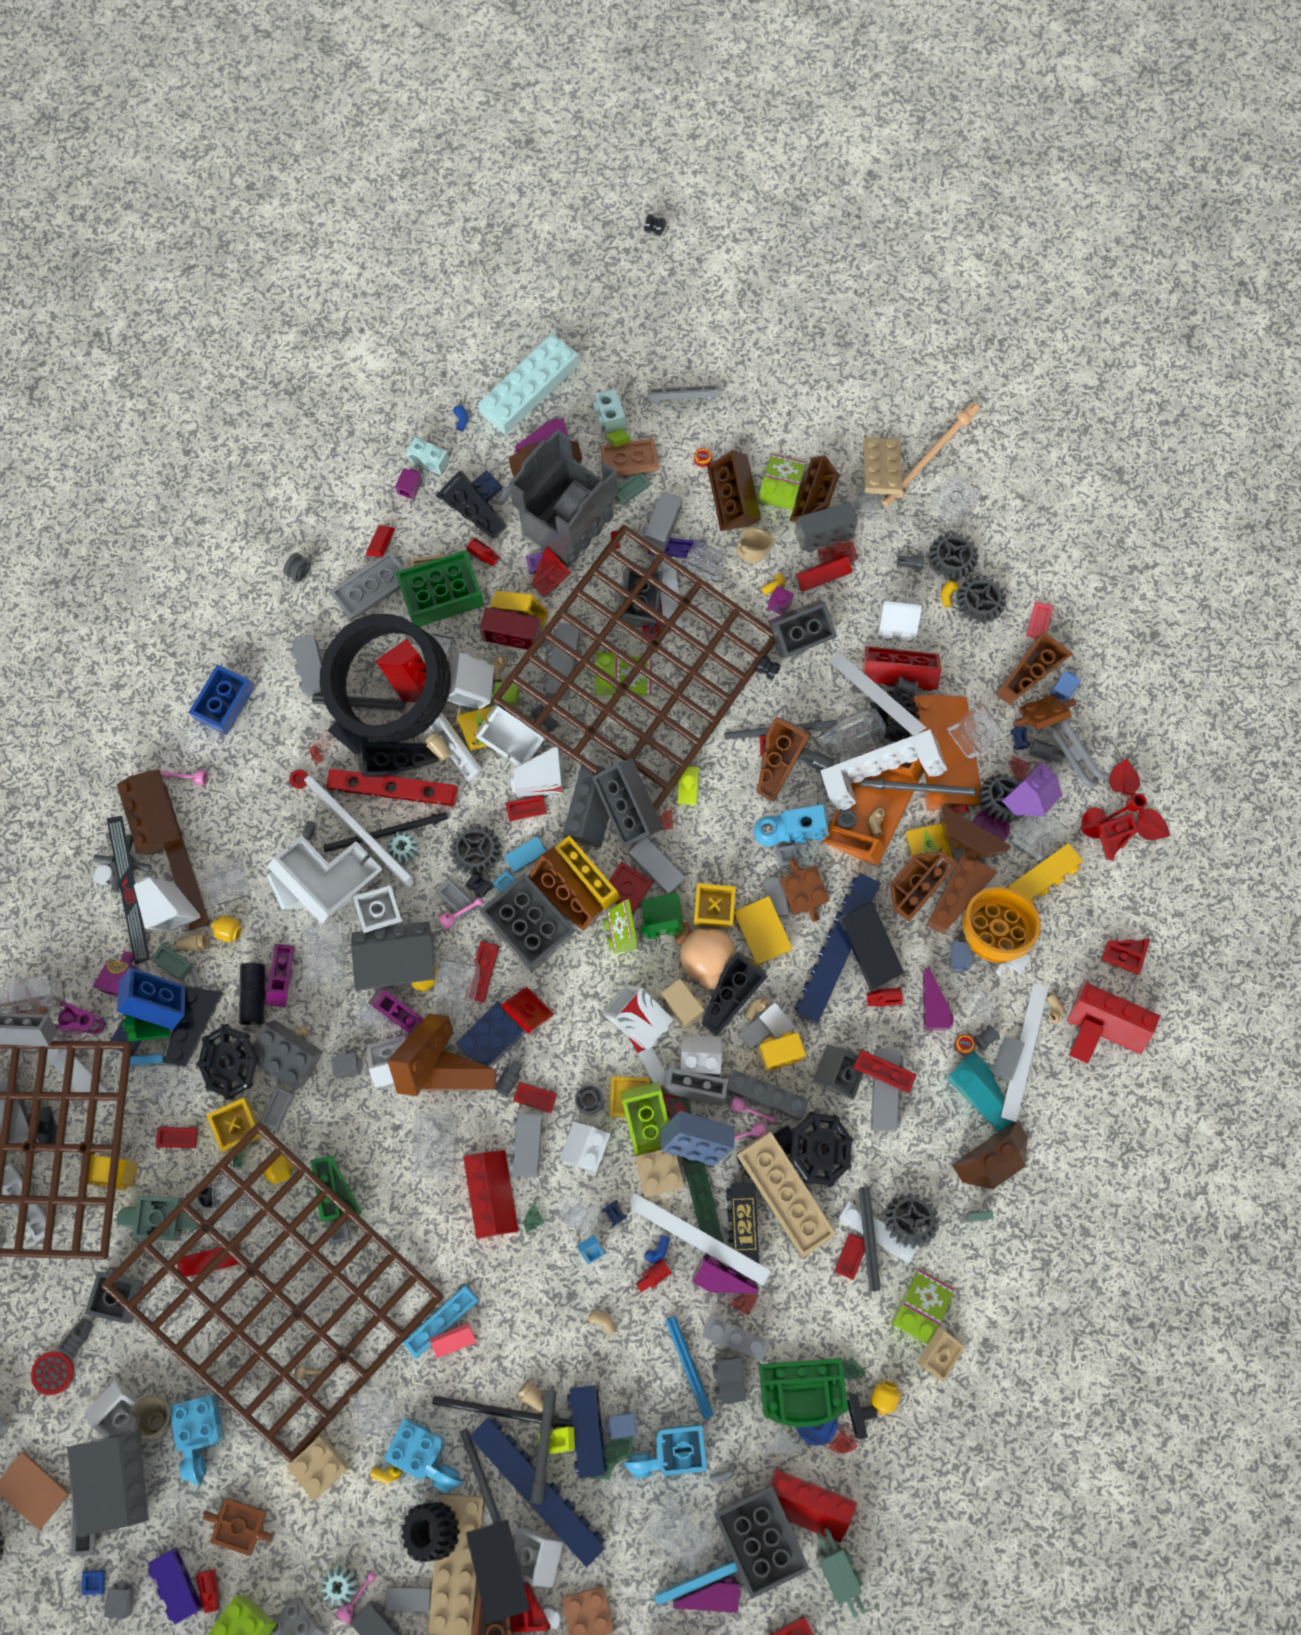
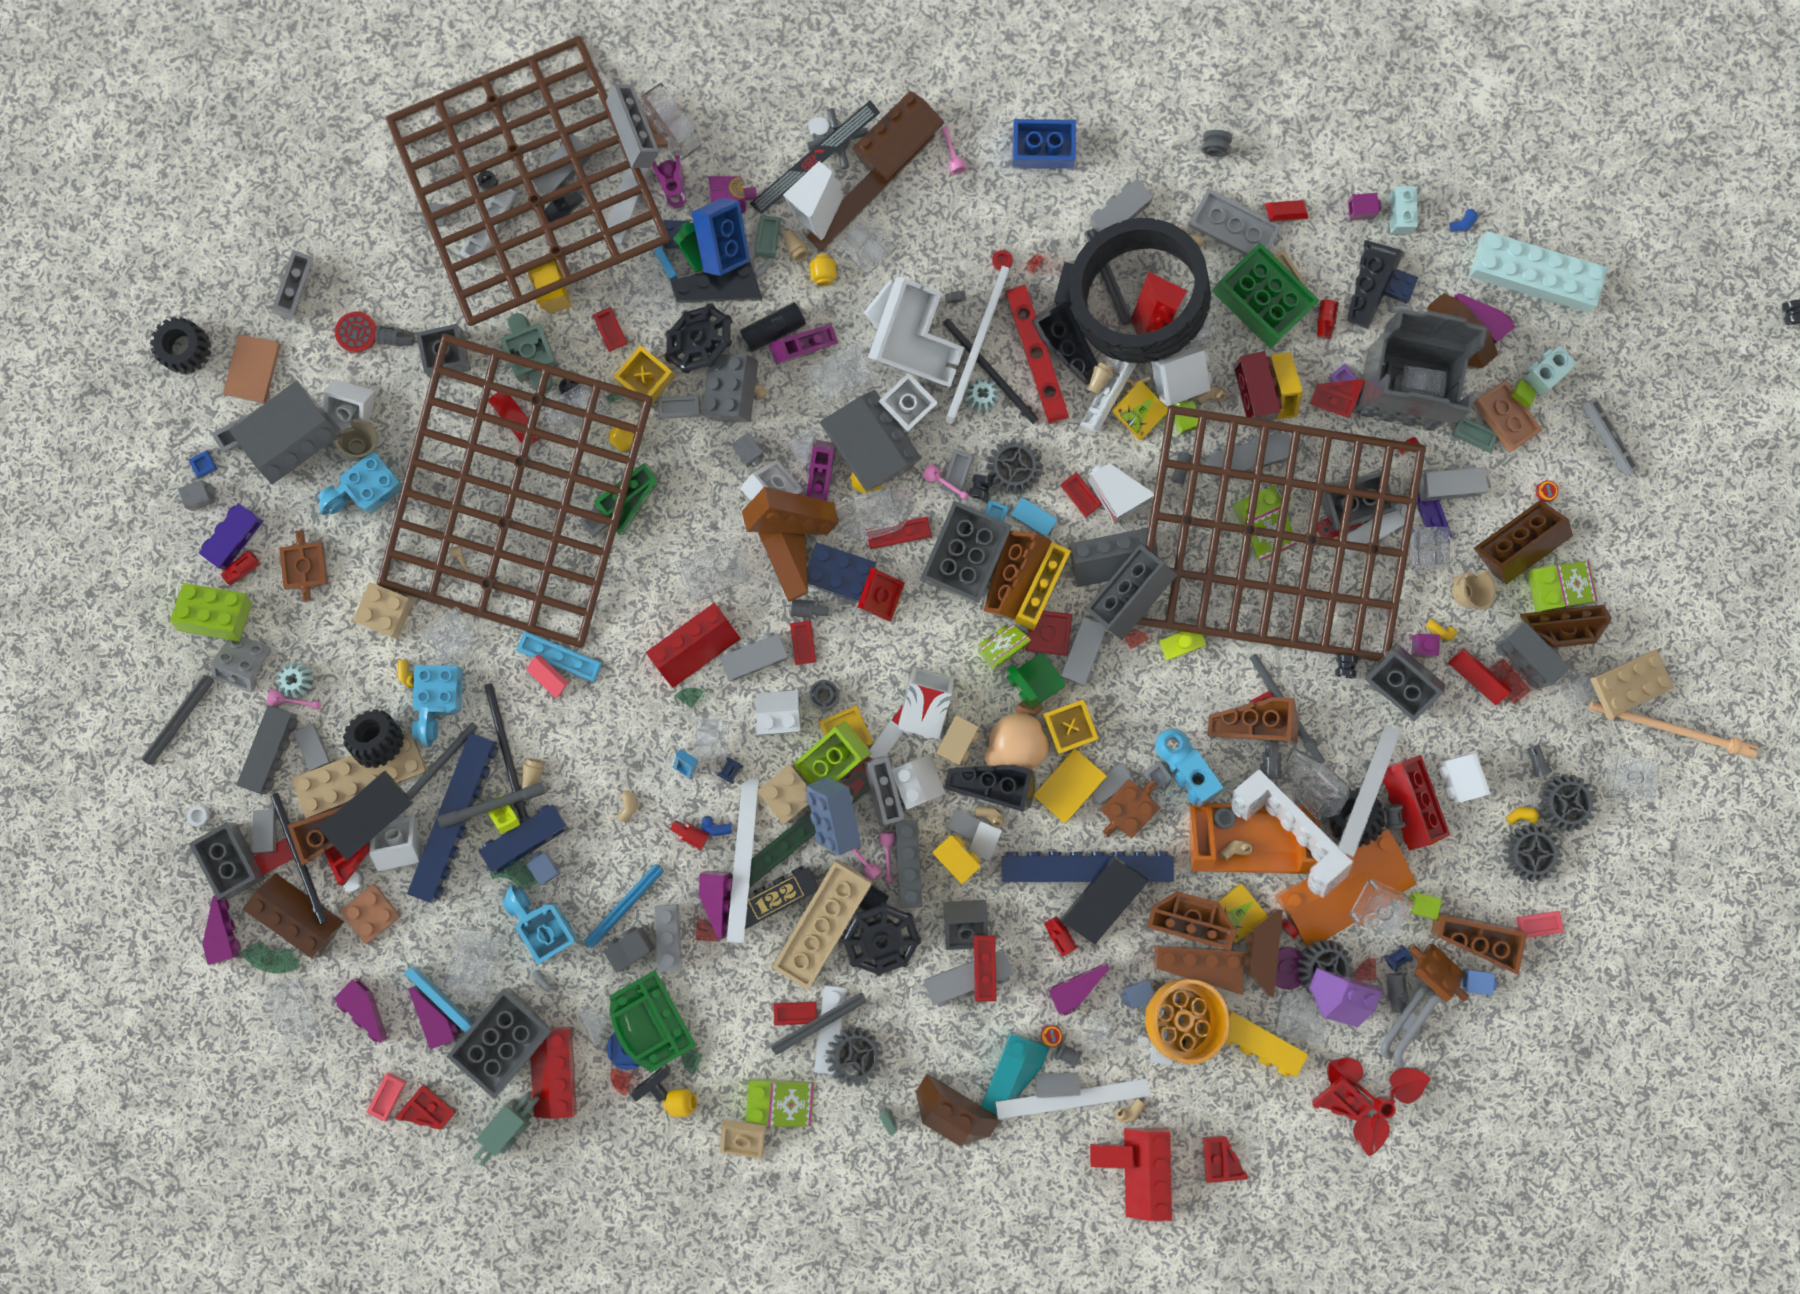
camera: 65 degrees right, 10 degrees up
(510, 735) = (1143, 435): white piece -> none
(880, 784) = (1277, 836): dark grey bar -> none
(988, 696) = (1425, 905): none -> lime brick

